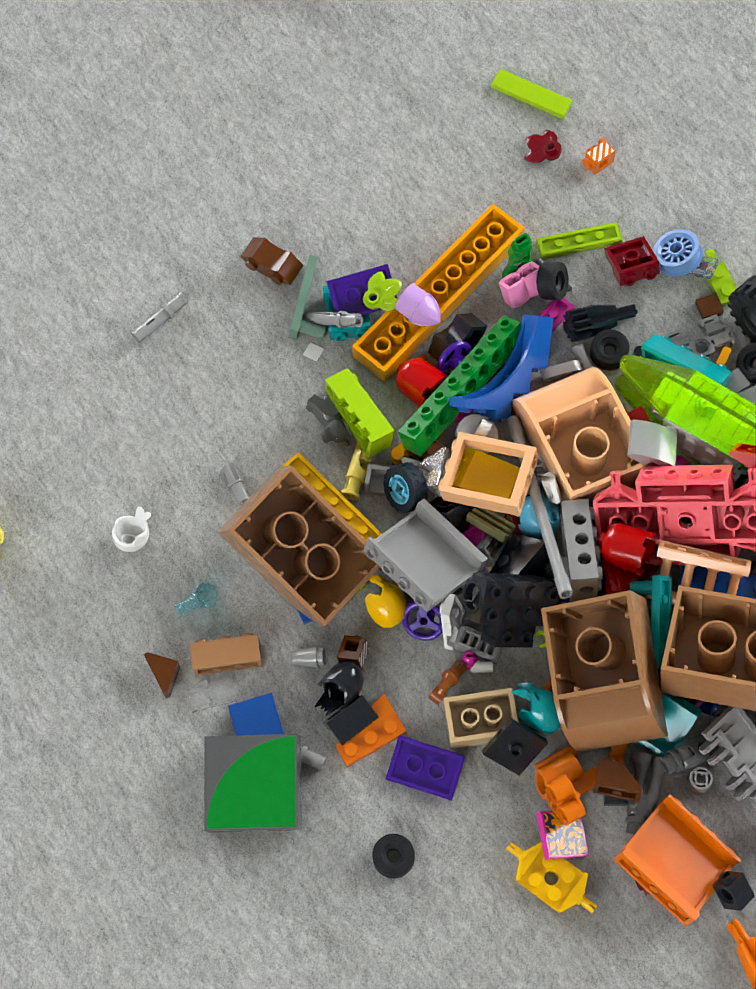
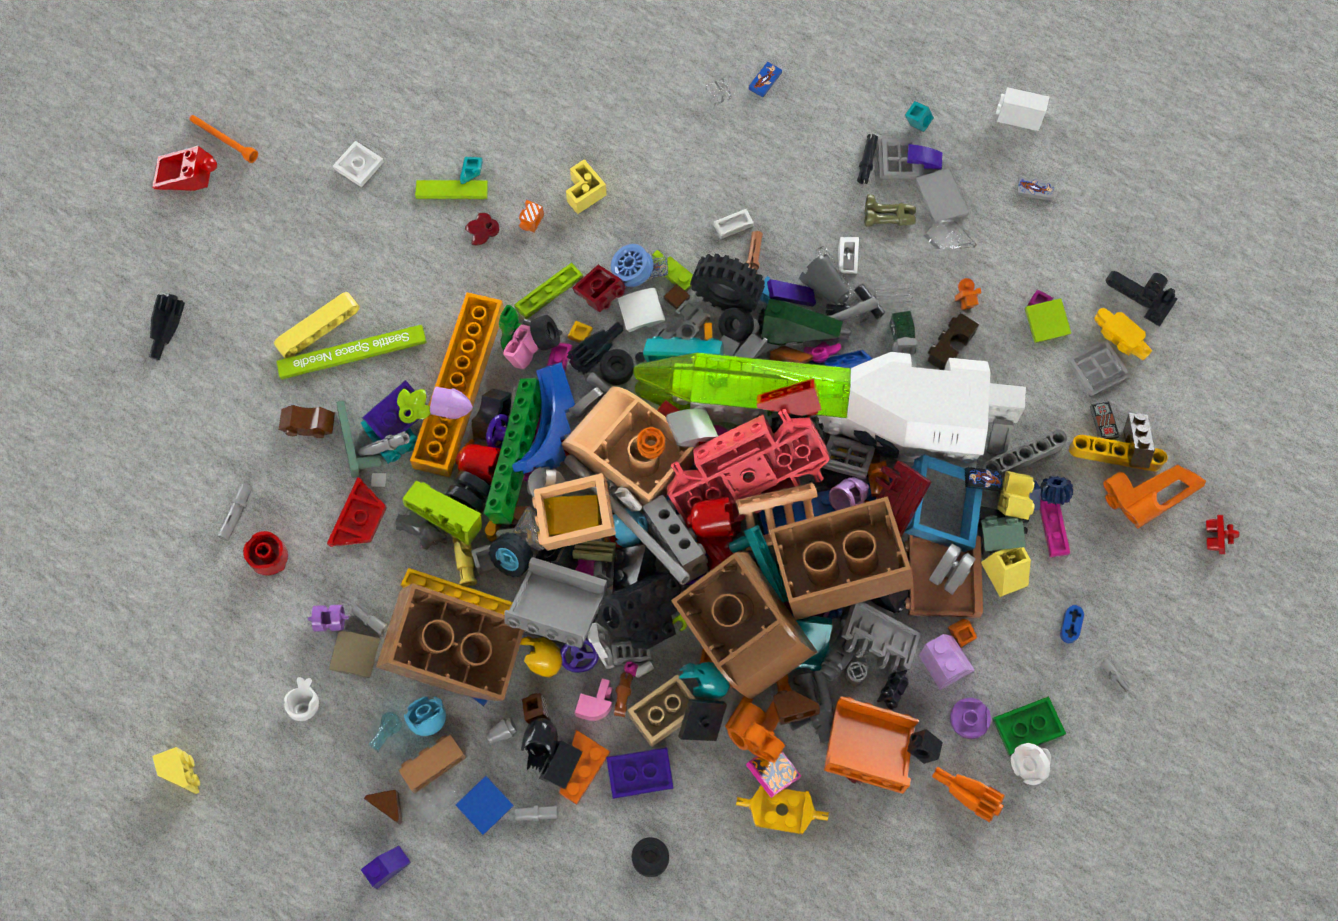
camera: 30 degrees left, 0 degrees up
(131, 731) = (385, 866): none -> dark purple slope
(168, 371) = (257, 557): none -> red brick
(183, 101) = (164, 322): none -> black piece
(195, 463) = (326, 618): none -> medium lavender wheel
(204, 510) = (354, 654): none -> dark tan slope
(242, 605) = (426, 716): none -> medium azure cylinder
(252, 783) = (507, 858): green tile -> none
(275, 379) = (358, 517): none -> red wing
(328, 170) = (316, 325): none -> light yellow beam
(350, 212) = (351, 352): none -> lime tile
(395, 404) = (469, 491): none -> black wheel
(416, 681) = (597, 707): none -> bright pink brick
(450, 27) = (358, 164): none -> white plate
(561, 81) = (471, 168): none -> teal tile
(589, 296) = (579, 332): none -> yellow tile
(604, 430) = (651, 434): none -> orange wheel
(665, 302) = (641, 309): none -> white slope
(672, 153) = (587, 188): none -> light yellow brick
(737, 813) = (894, 689): none -> black hinge

